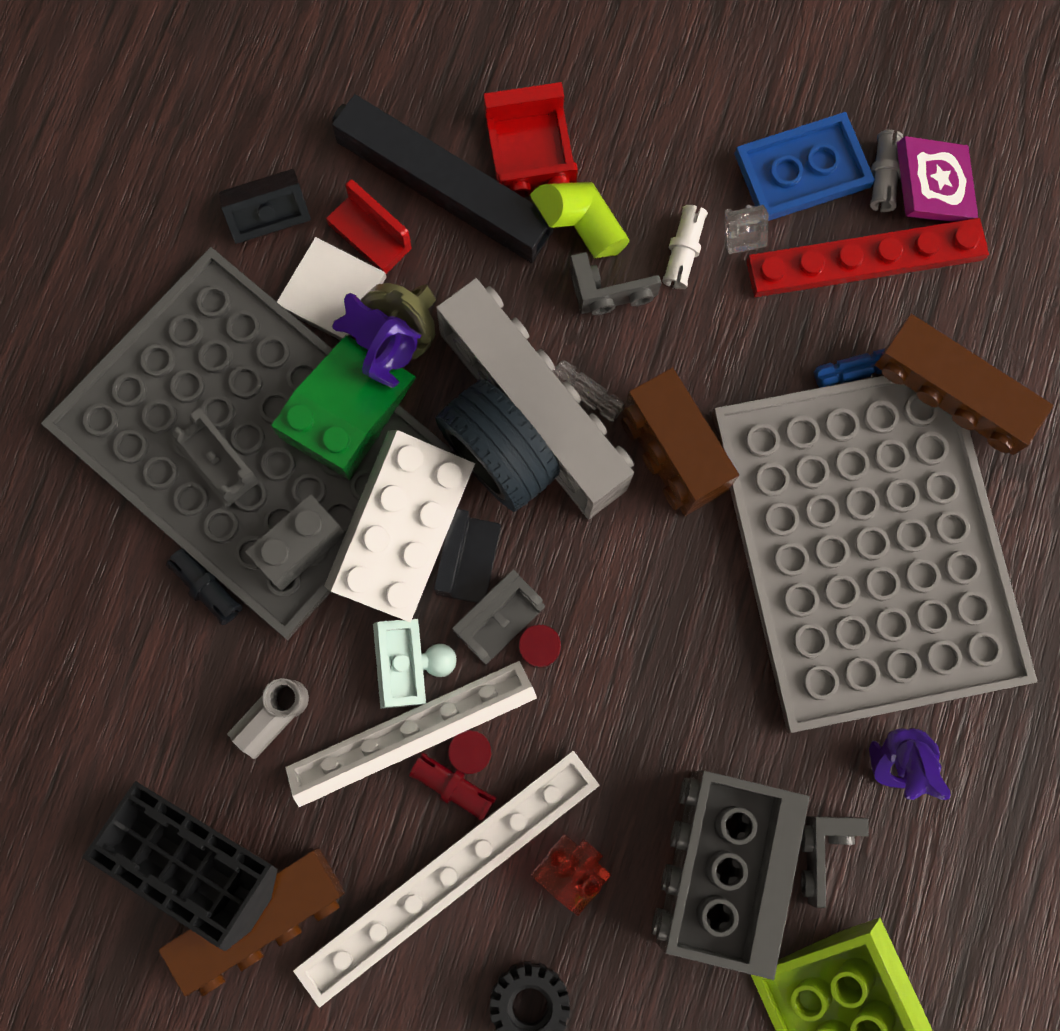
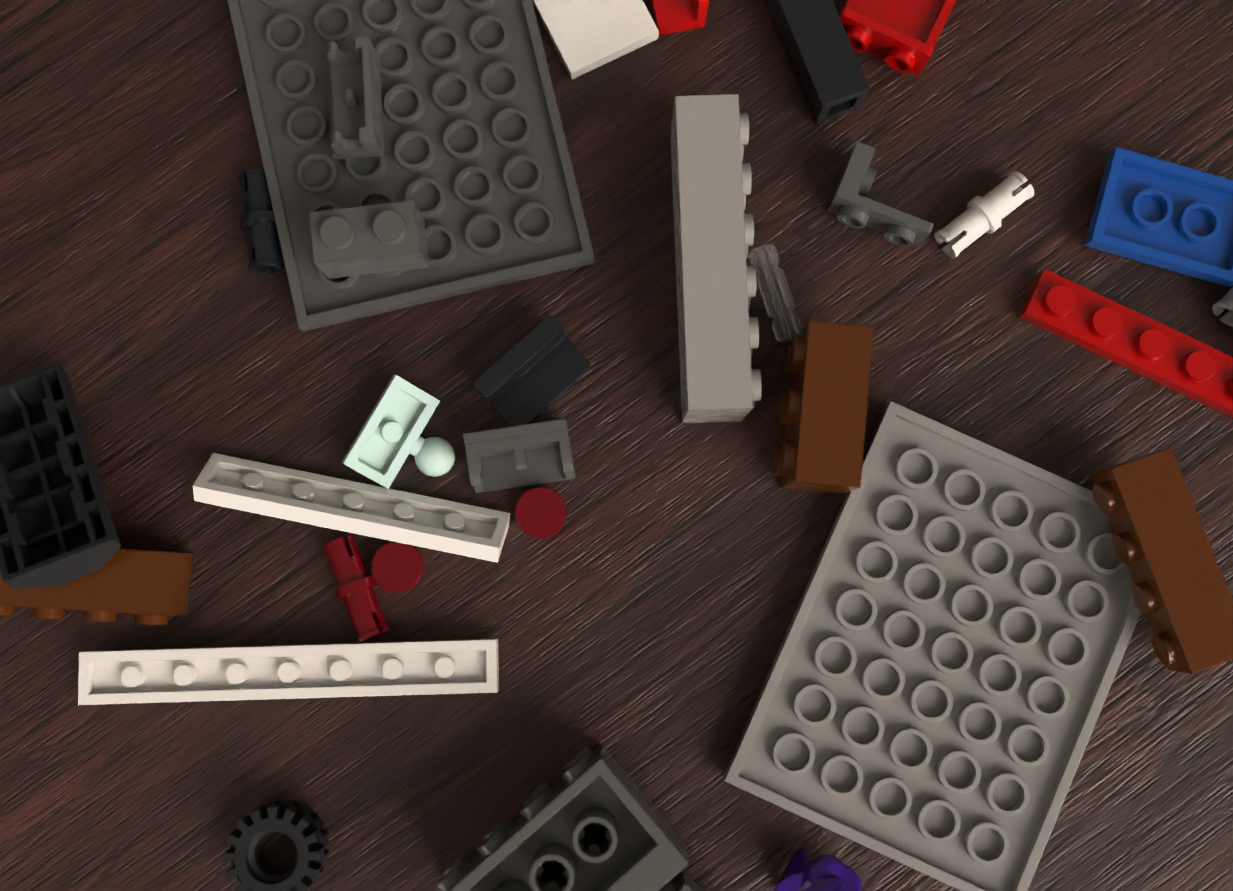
camera: 40 degrees right, 5 degrees up
(266, 718) = (229, 393): light grey piece -> none
(340, 409) = (516, 135): green slope -> none
(385, 337) = (603, 91): dark purple hair -> none
(399, 525) = (482, 295): white brick -> none
(408, 306) = (635, 86): olive tile -> none
(501, 442) = (639, 281): black wheel -> none
(572, 873) = (406, 758): clear red brick -> none
(585, 209) = (908, 107): lime brick -> none
(746, 228) = (1062, 239): clear tile -> none
(848, 369) = (1060, 458): blue axle -> none

